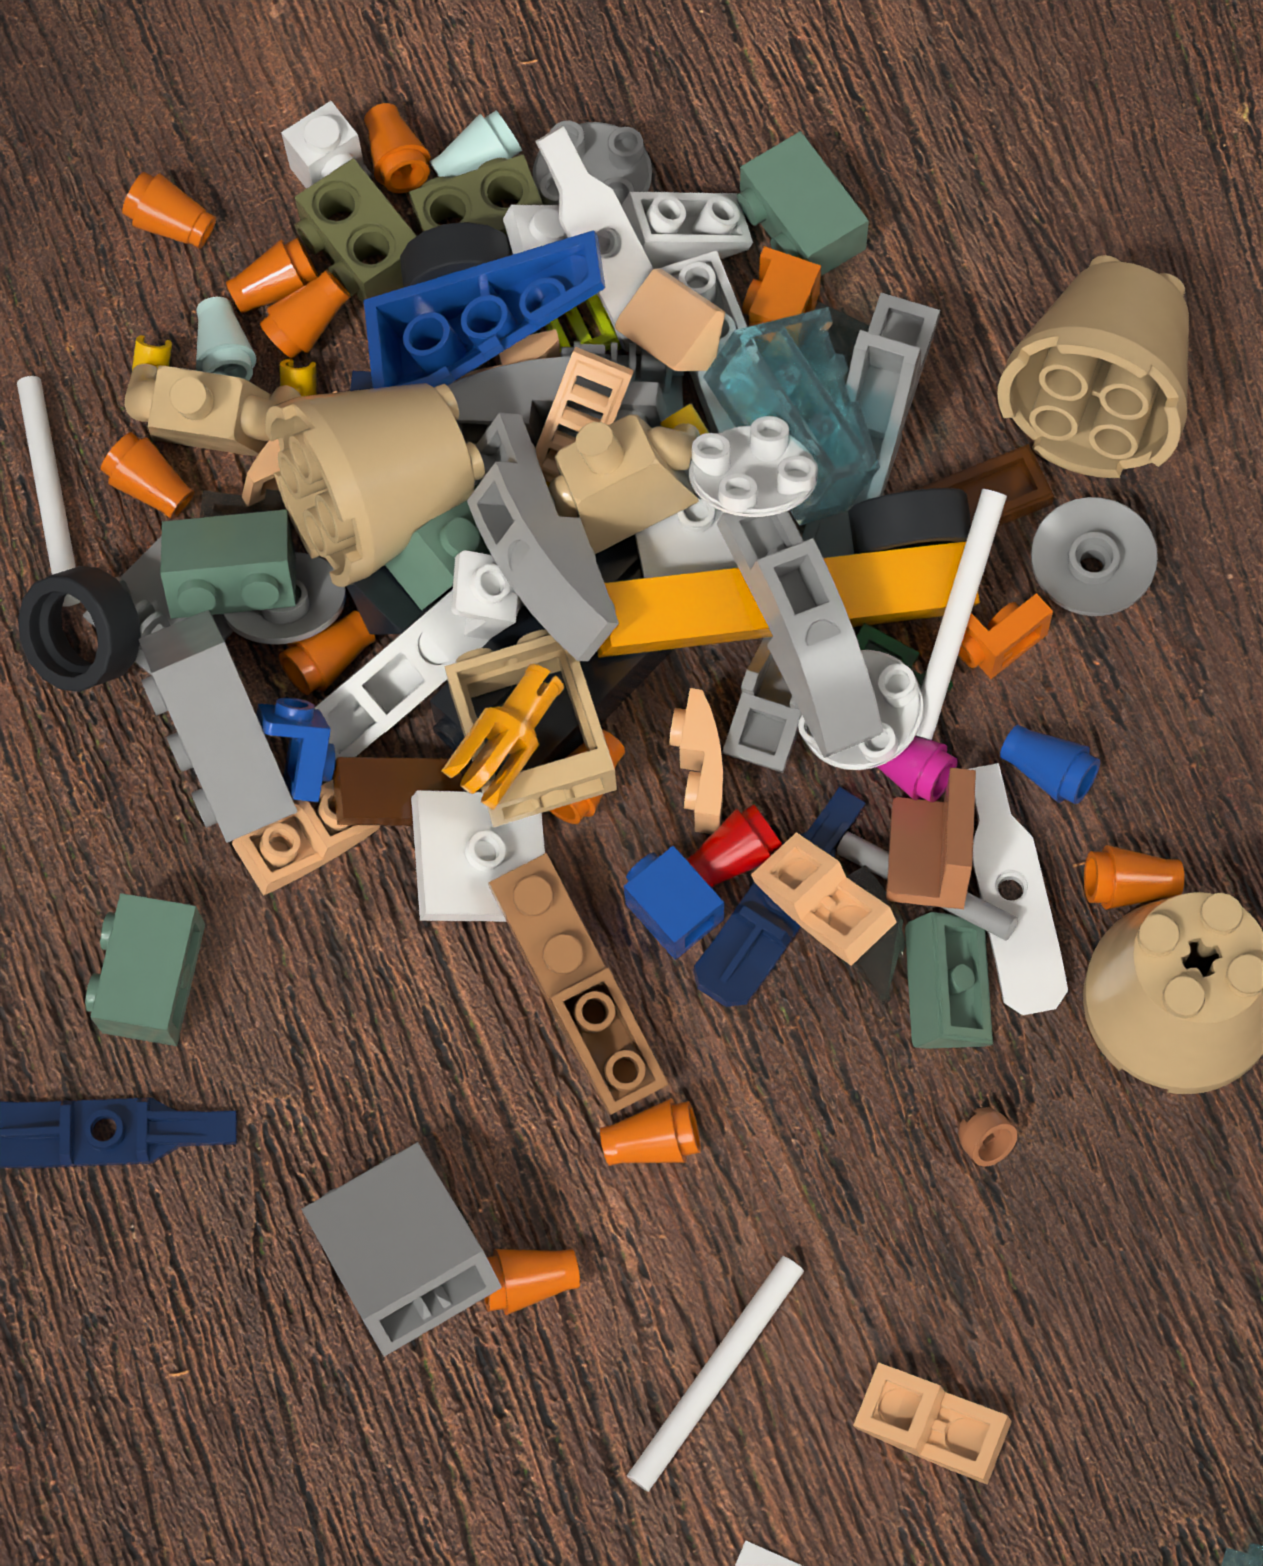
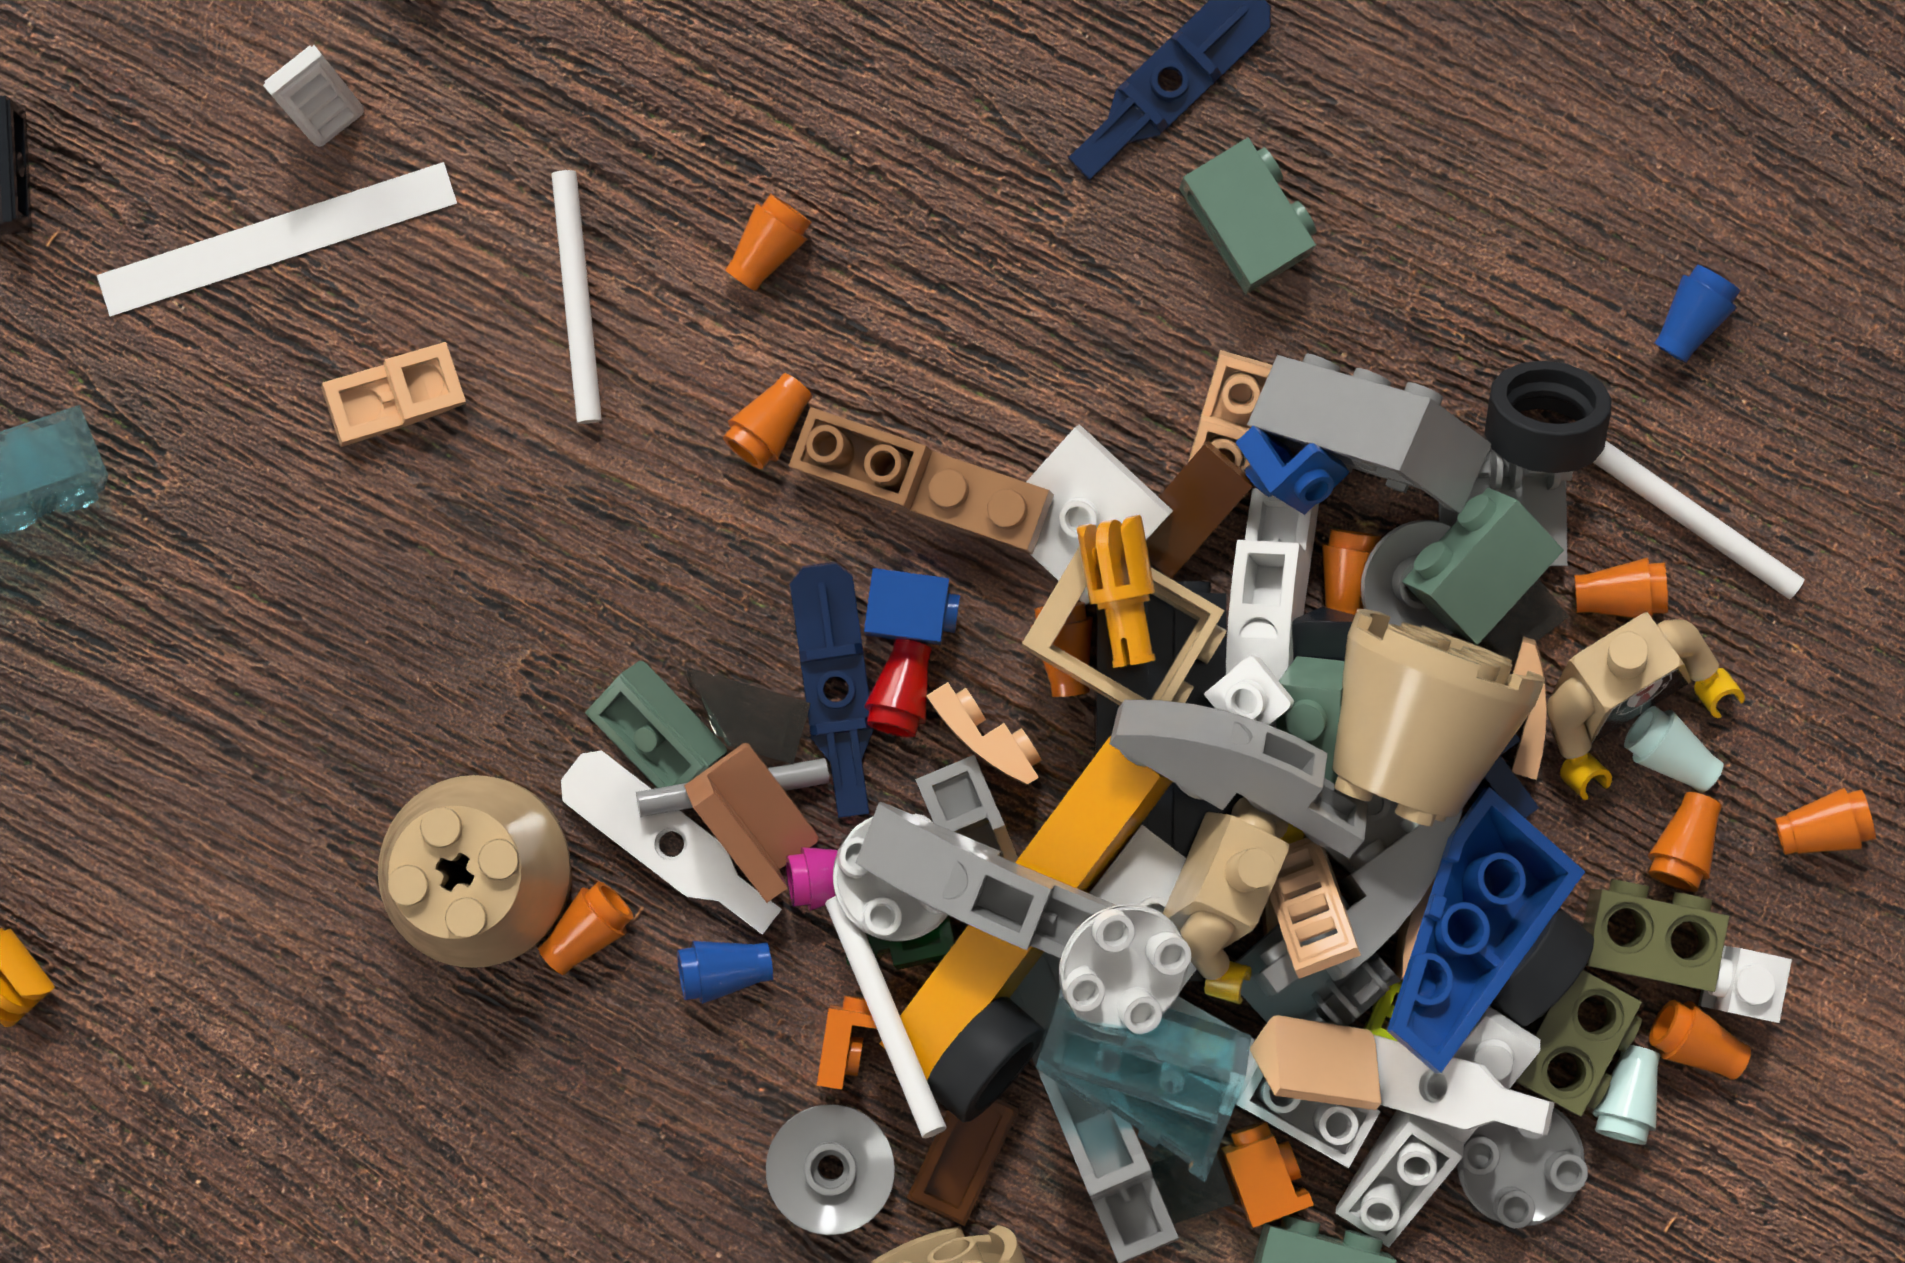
camera: 135 degrees right, 15 degrees up
(303, 316) = (1629, 828): orange cone -> none
(401, 1248) = (868, 173): light grey brick -> none
(822, 899) = (796, 704): light nougat slope -> none
(987, 1136) = (527, 635): nougat hinge -> none

